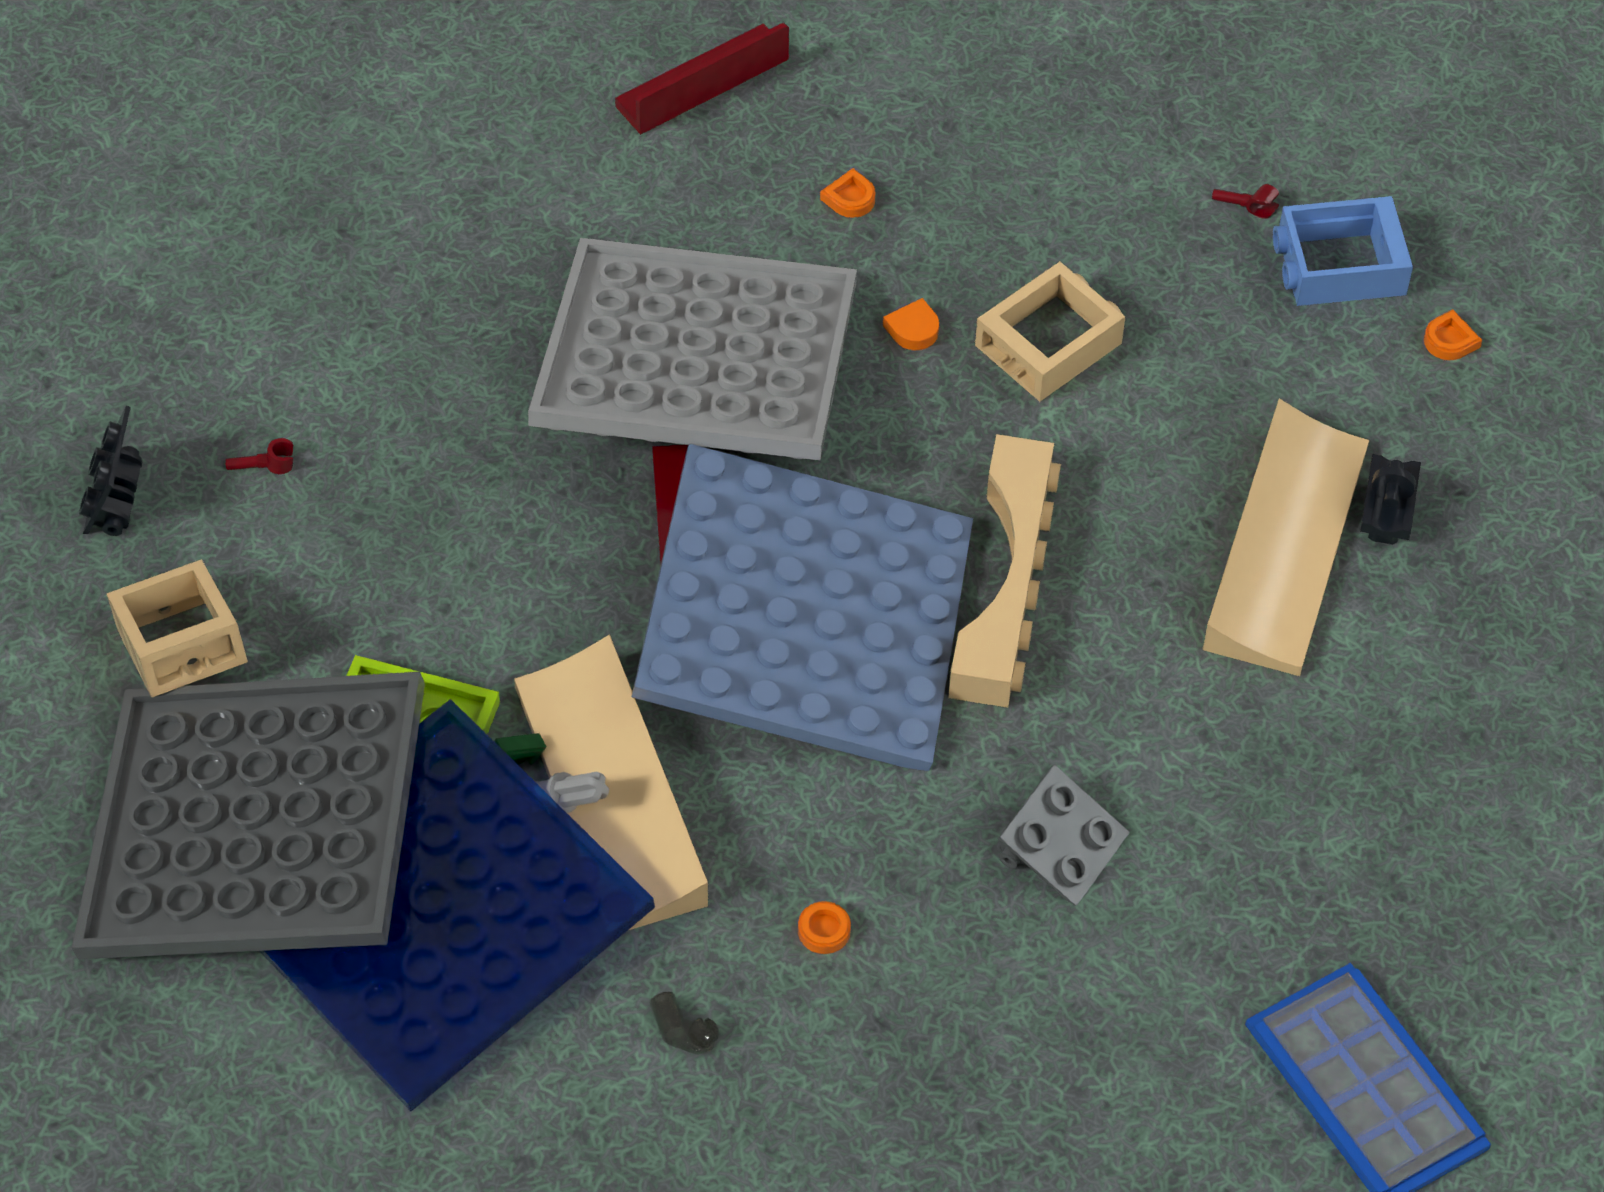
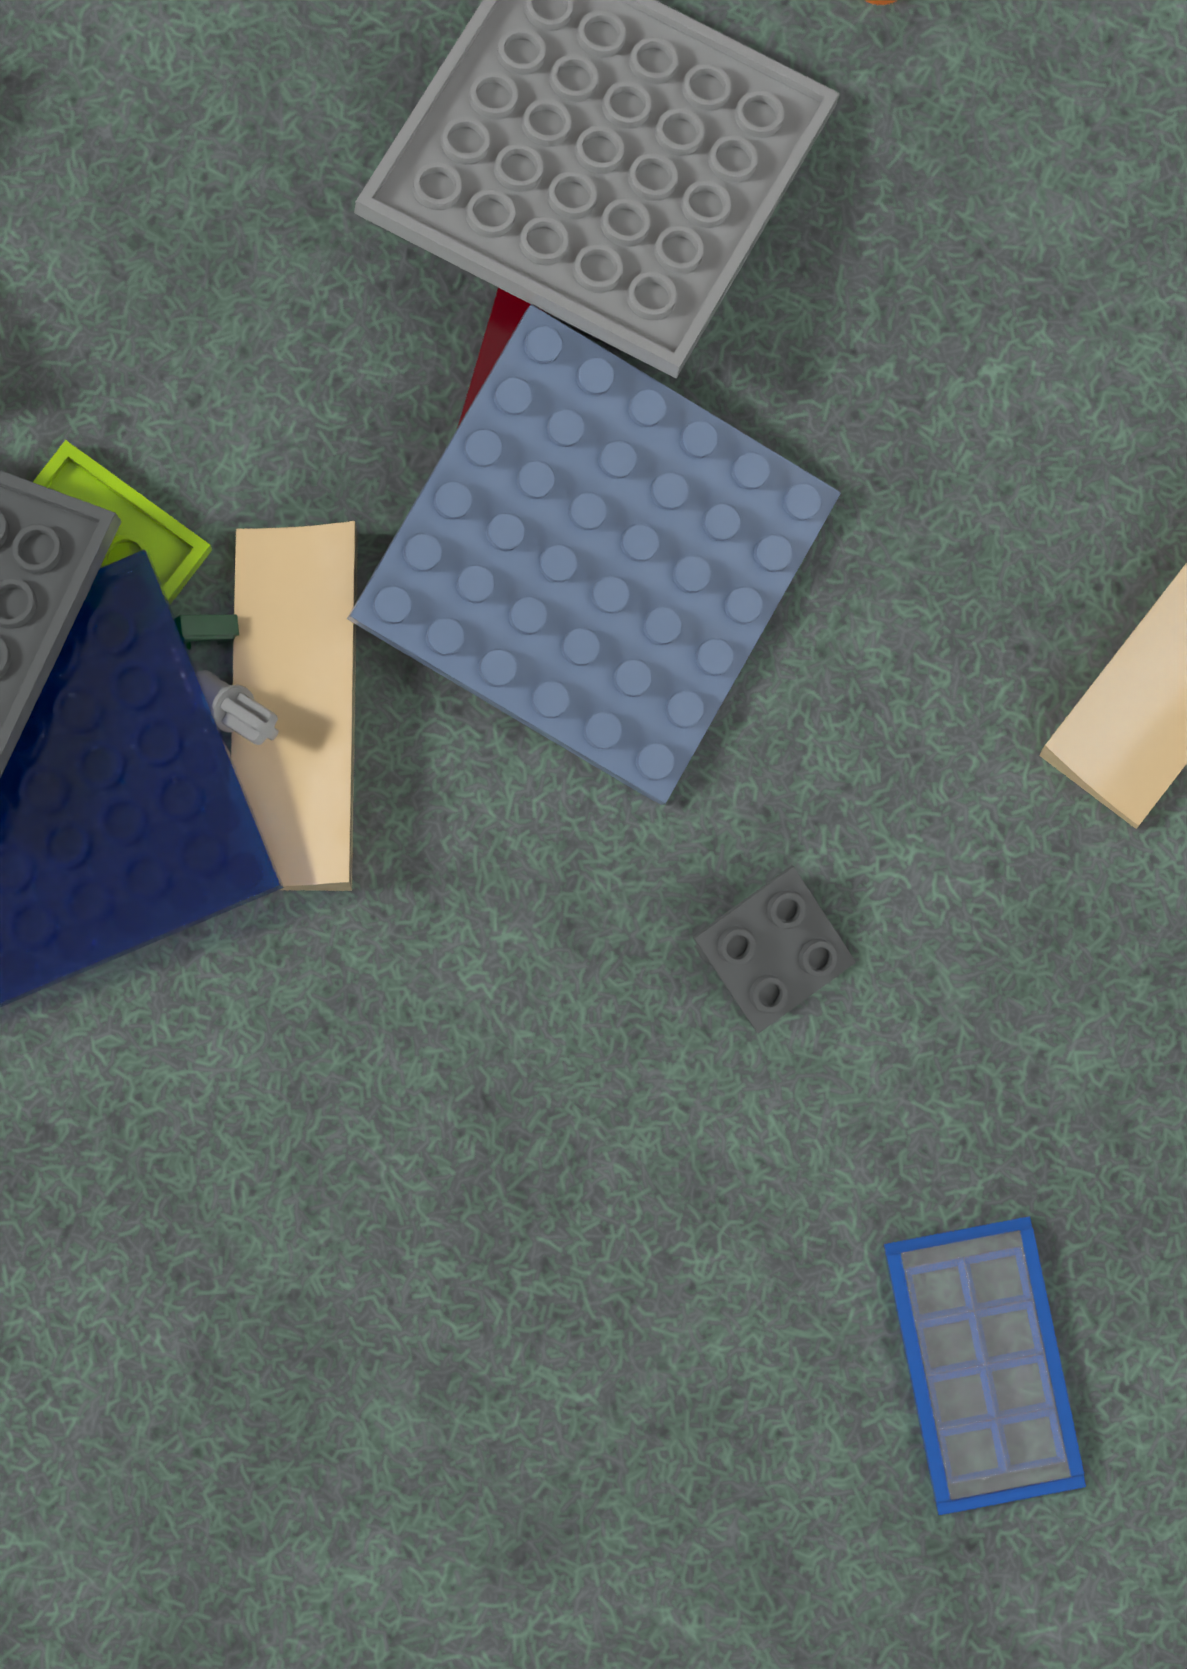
camera: 20 degrees right, 25 degrees up
(268, 460) = (51, 125): dark red hand -> none
(689, 1036) = (263, 1038): clear smoke arm -> none
(824, 927) = (467, 965): orange tile -> none
(913, 325) = (880, 192): orange tile -> none
(988, 647) = (785, 681): tan arch -> none
(1022, 359) = (982, 285): tan window -> none

